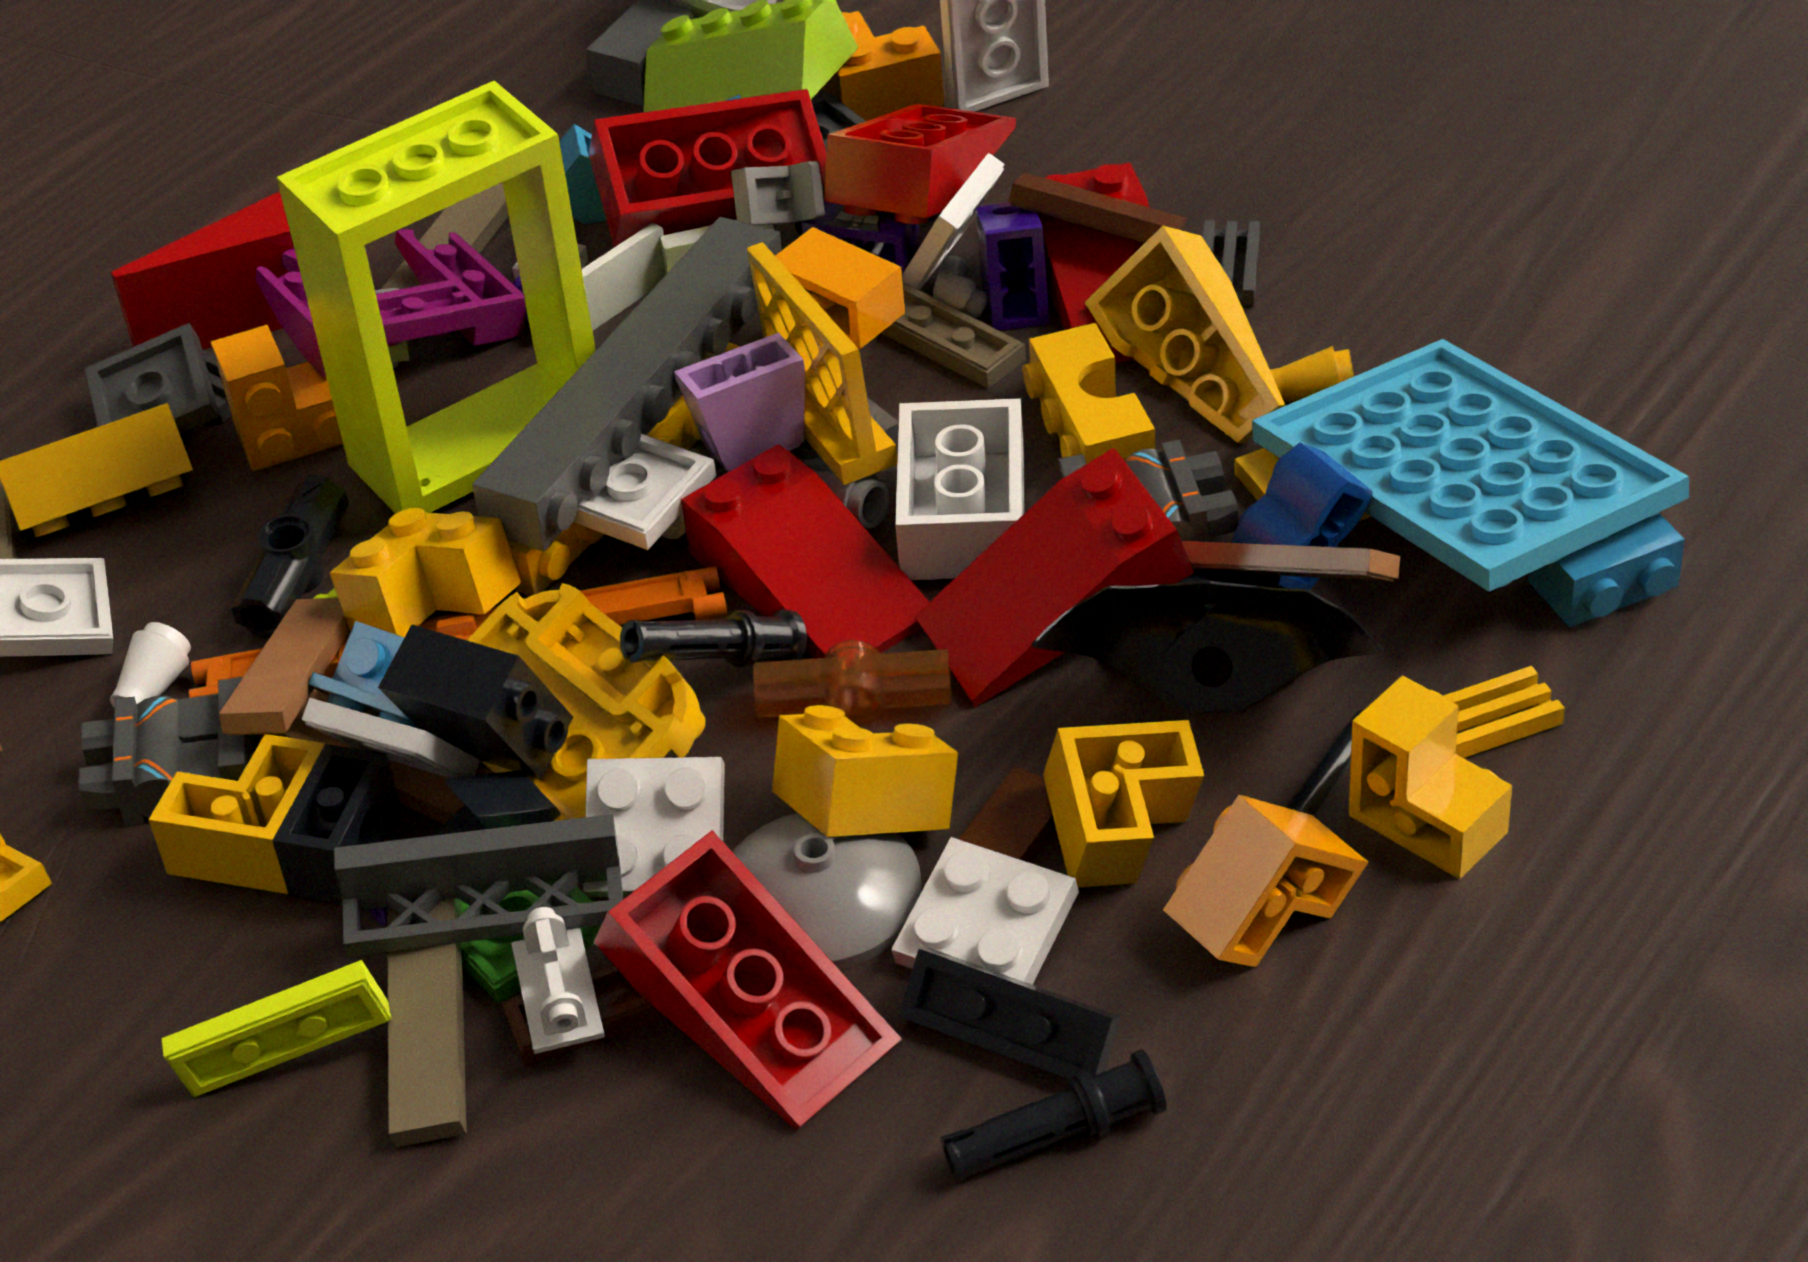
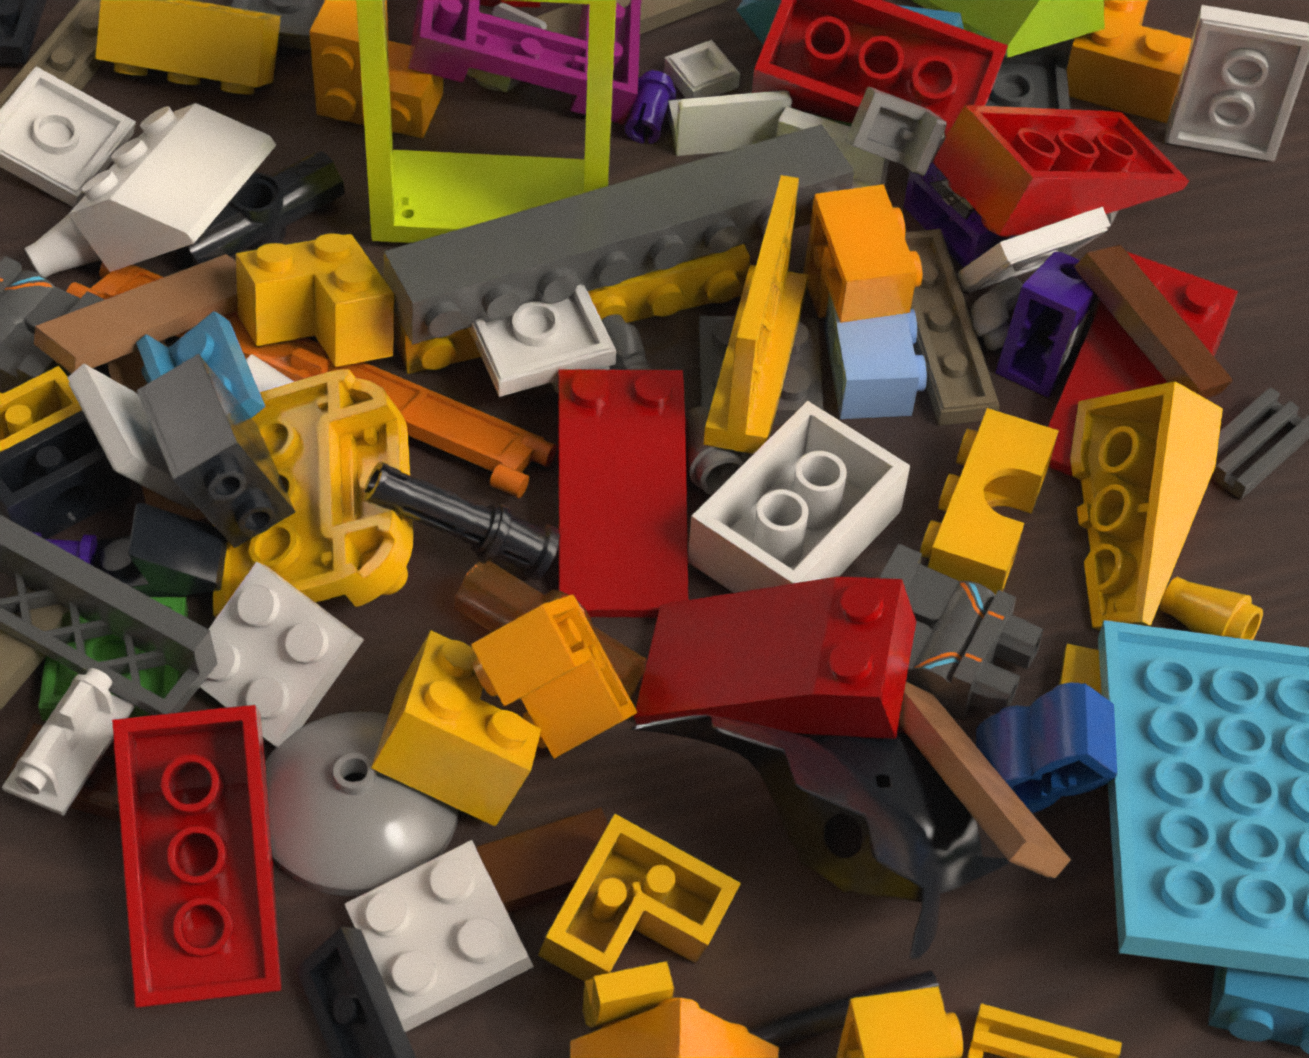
camera: 30 degrees right, 10 degrees up
(210, 565) = (167, 184): none -> white slope
(747, 400) = (680, 314): lavender torso -> none
(904, 680) = (557, 672): none -> light orange brick
(909, 367) = (874, 364): none -> light blue brick
(1178, 846) = (625, 993): none -> yellow slope

